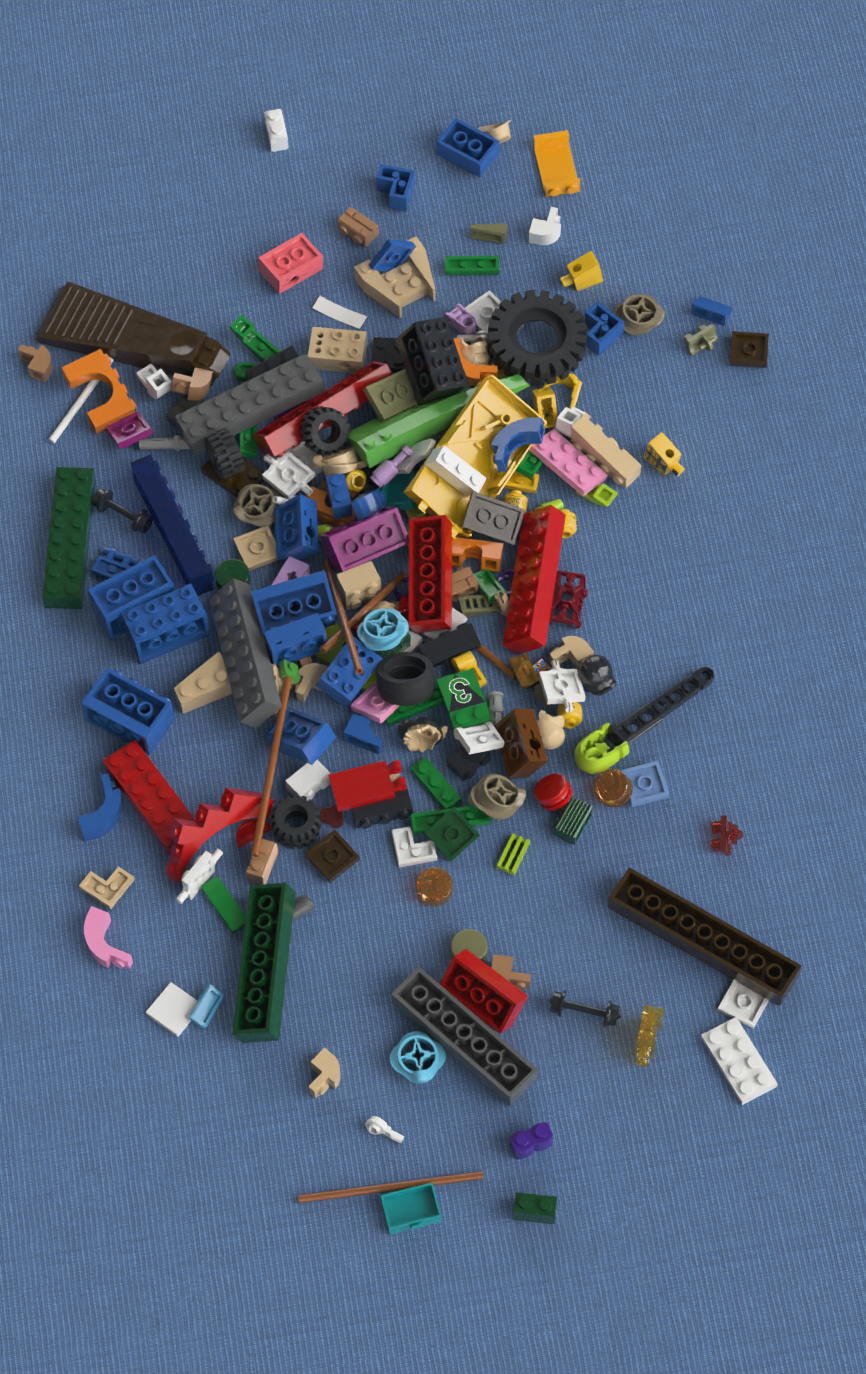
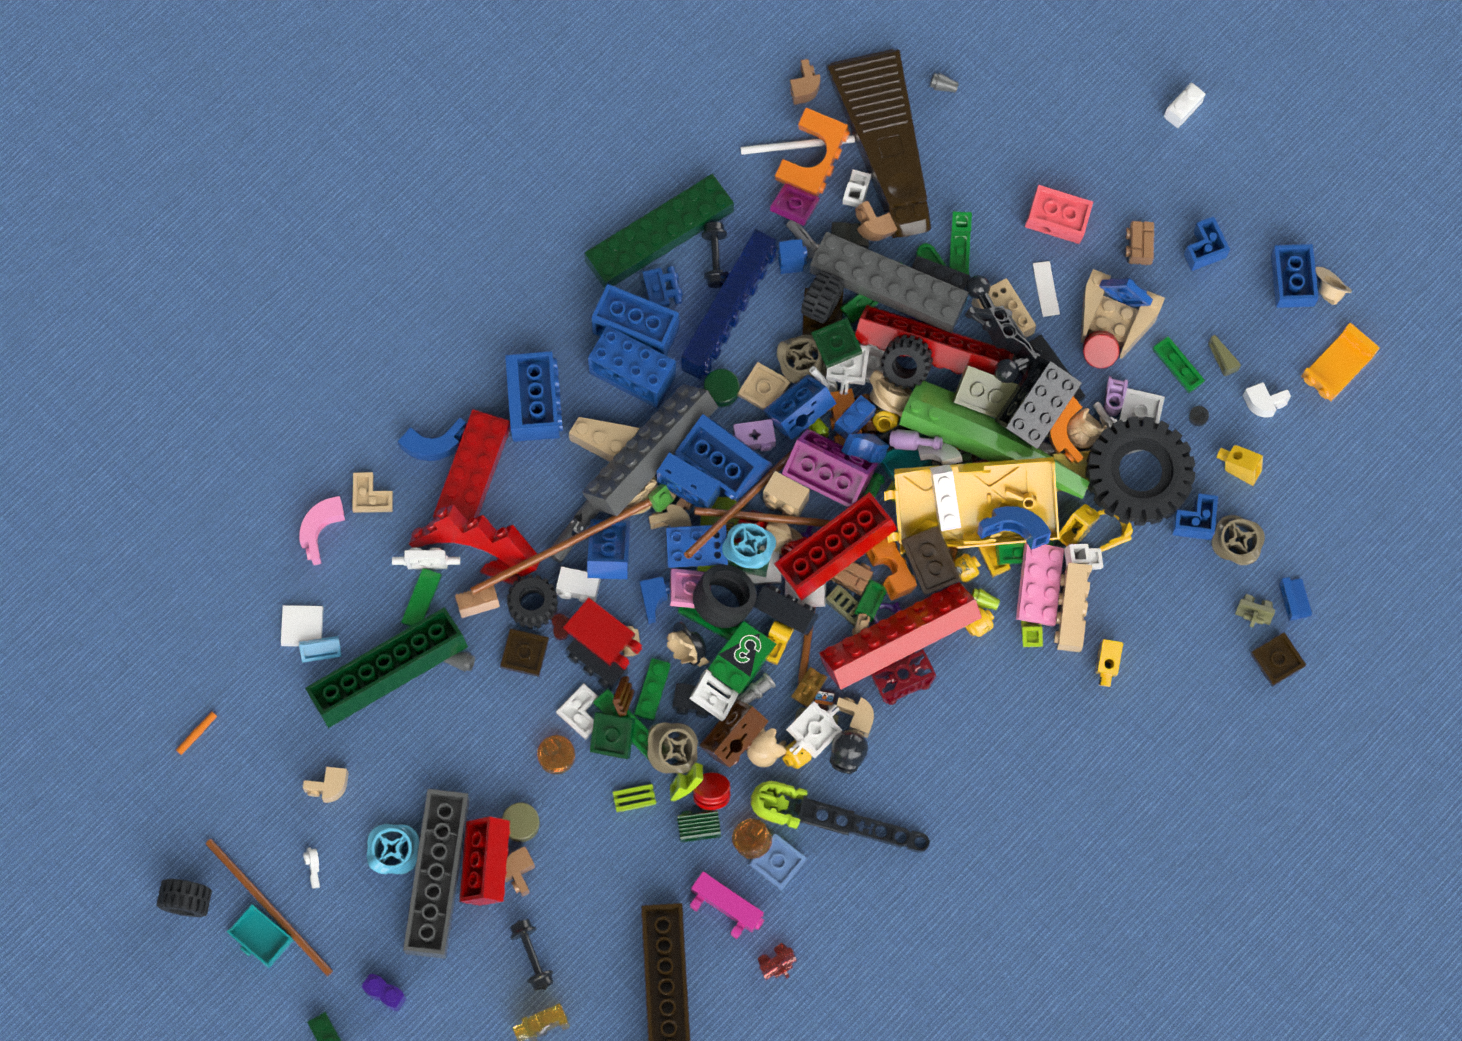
camera: 50 degrees right, 10 degrees up
(118, 272) = (943, 83): none -> cone
(170, 457) = (792, 256): none -> blue brick
(199, 1150) = (193, 736): none -> orange piece
(260, 753) = (578, 524): none -> dark grey piece
(268, 468) = (837, 343): none -> dark green plate
(336, 1242) = (184, 897): none -> black tyre
(354, 352) = (1002, 330): none -> black piece
(419, 304) = (1101, 349): none -> head
(427, 803) = (623, 696): none -> reddish brown tile
(521, 279) = (1198, 416): none -> clear smoke tile
(533, 808) = (685, 784): none -> lime slope
(650, 839) = (728, 903): none -> dark pink brick

